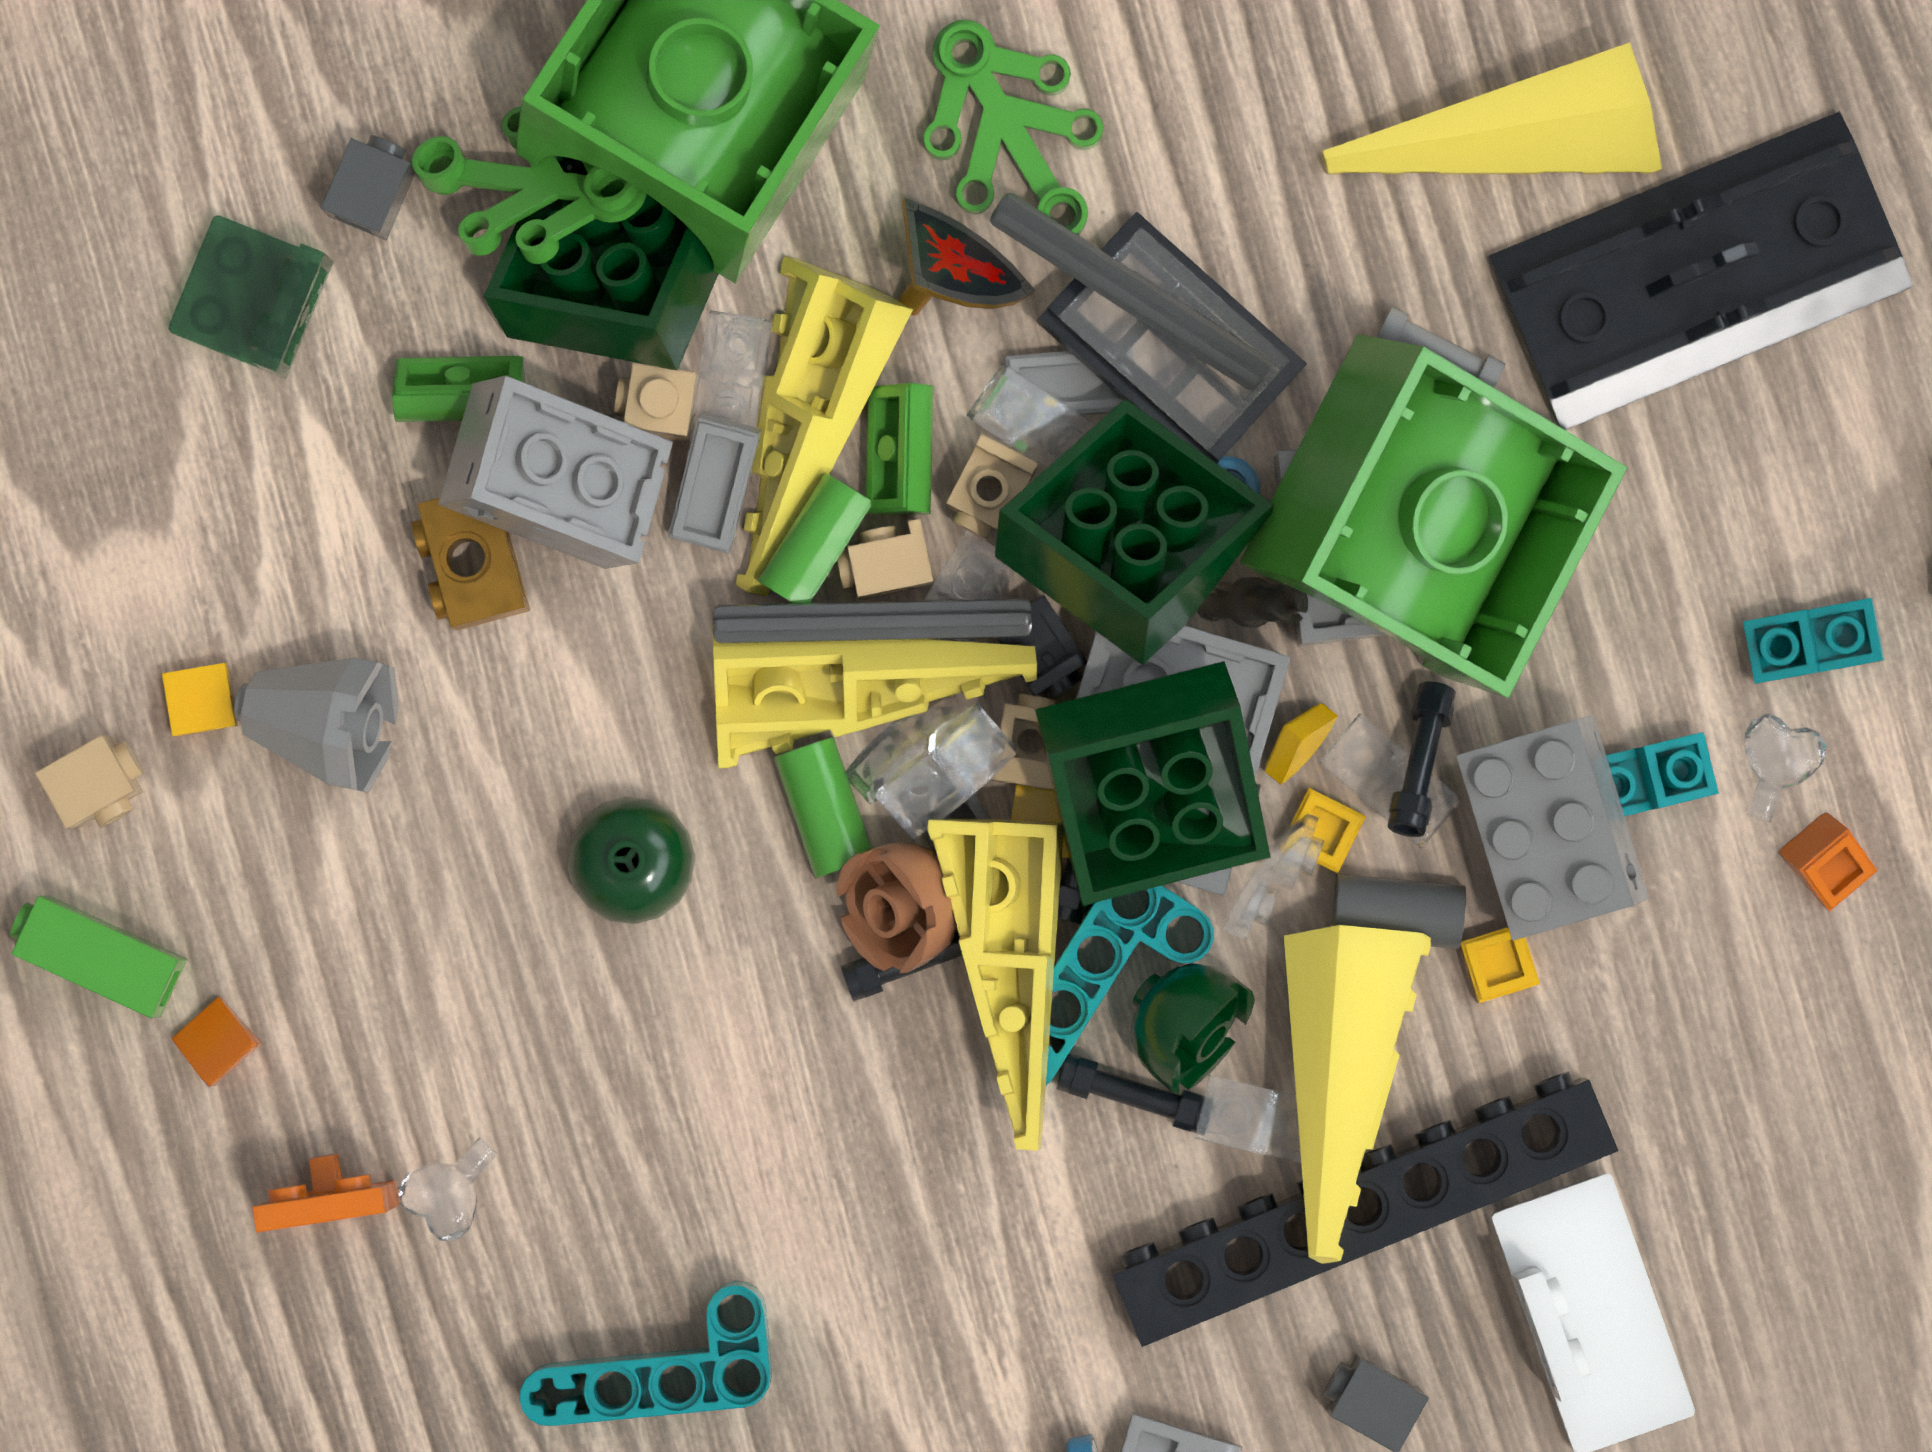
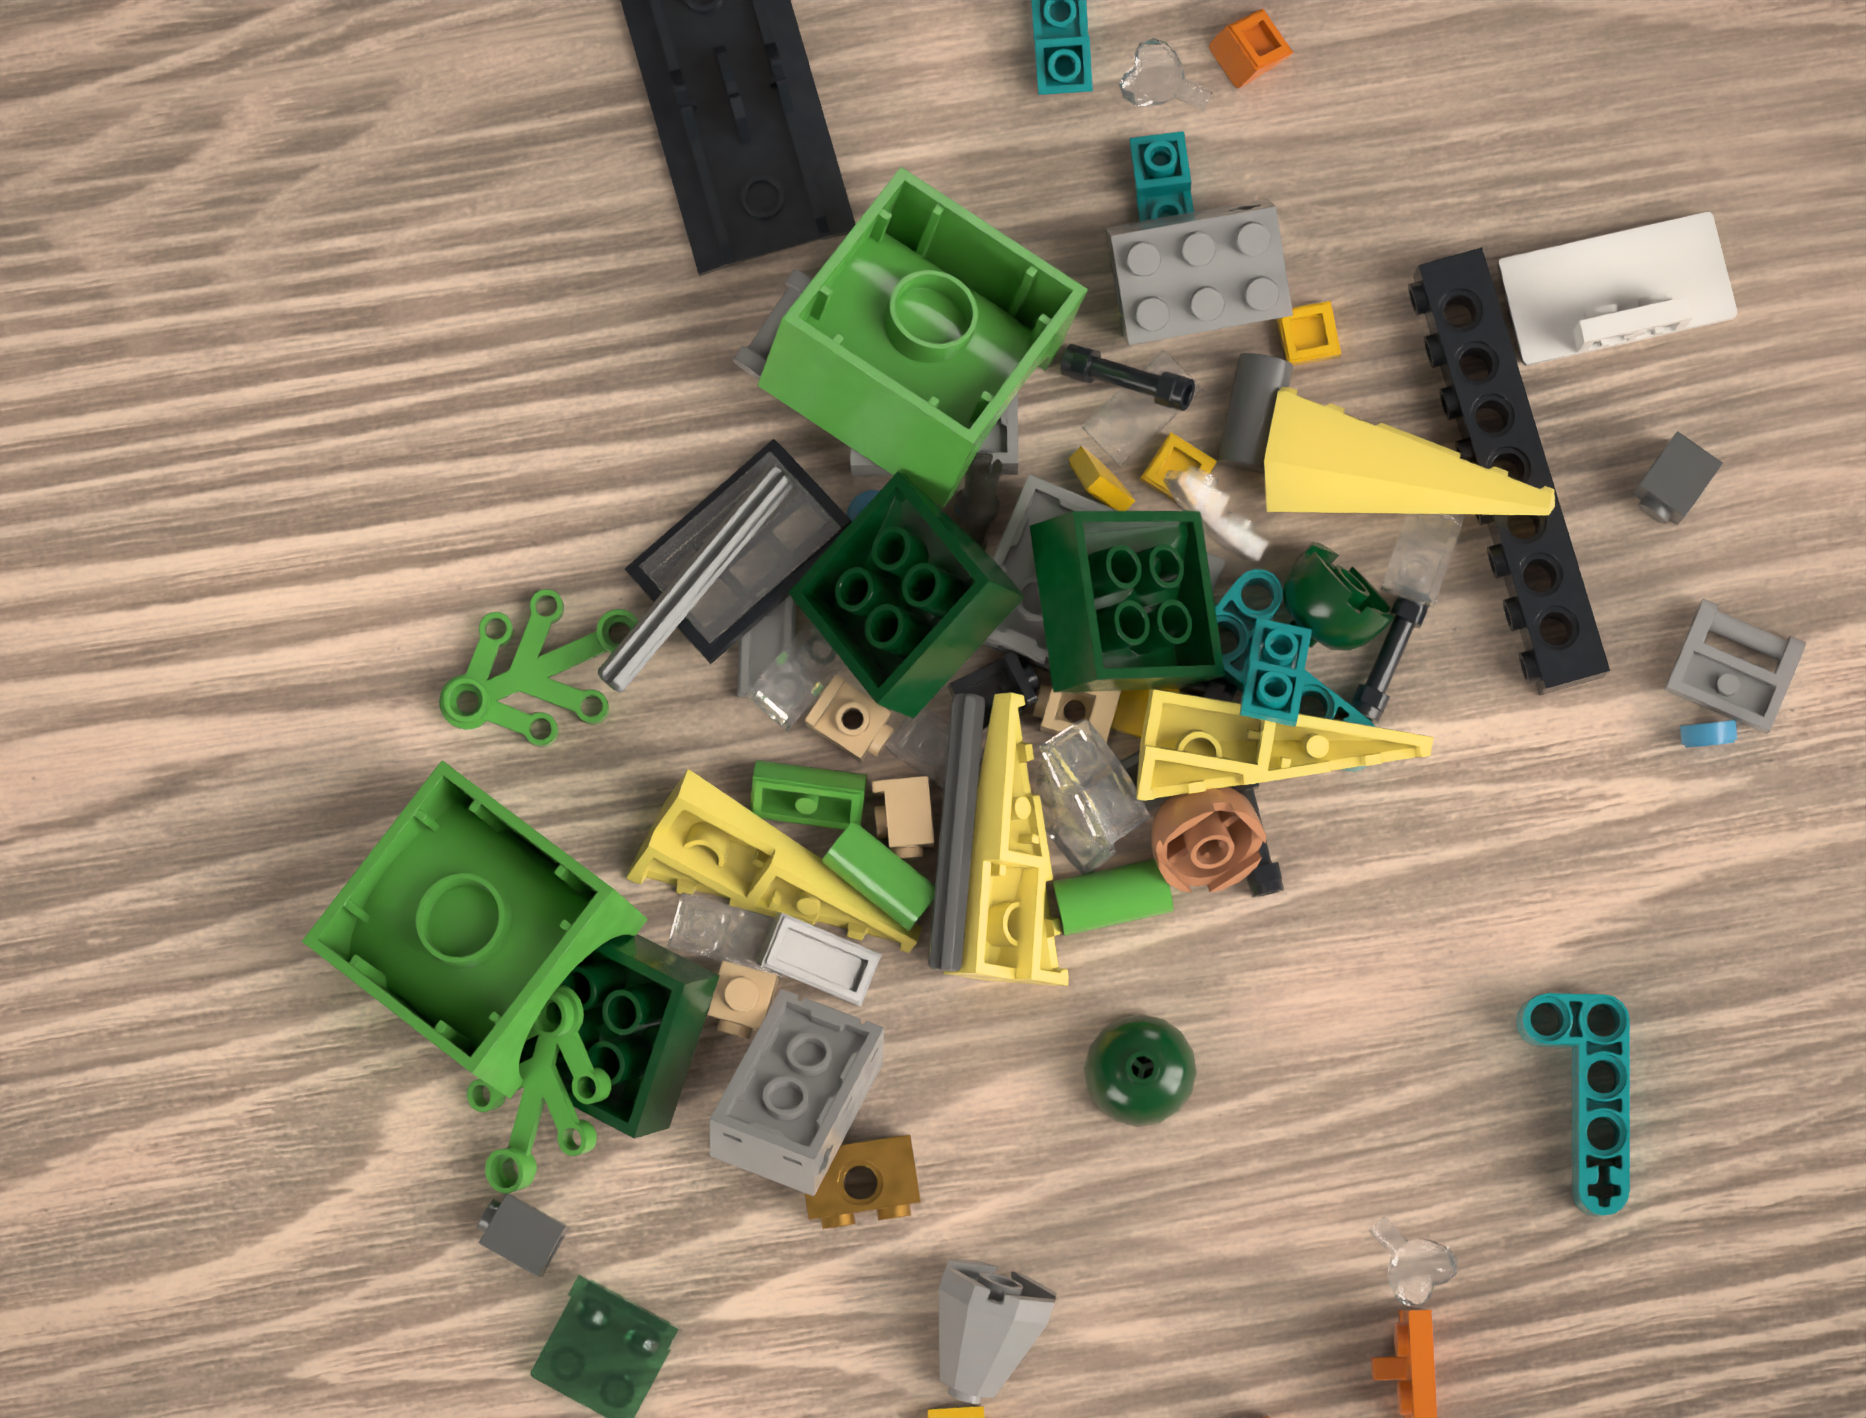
camera: 80 degrees left, 5 degrees down
(440, 386) = (706, 1183): bright green brick -> none
(955, 264) = (653, 728): shield -> none
(1091, 962) = (1275, 672): none -> teal slope
(1566, 120) = (591, 195): light yellow wedge -> none

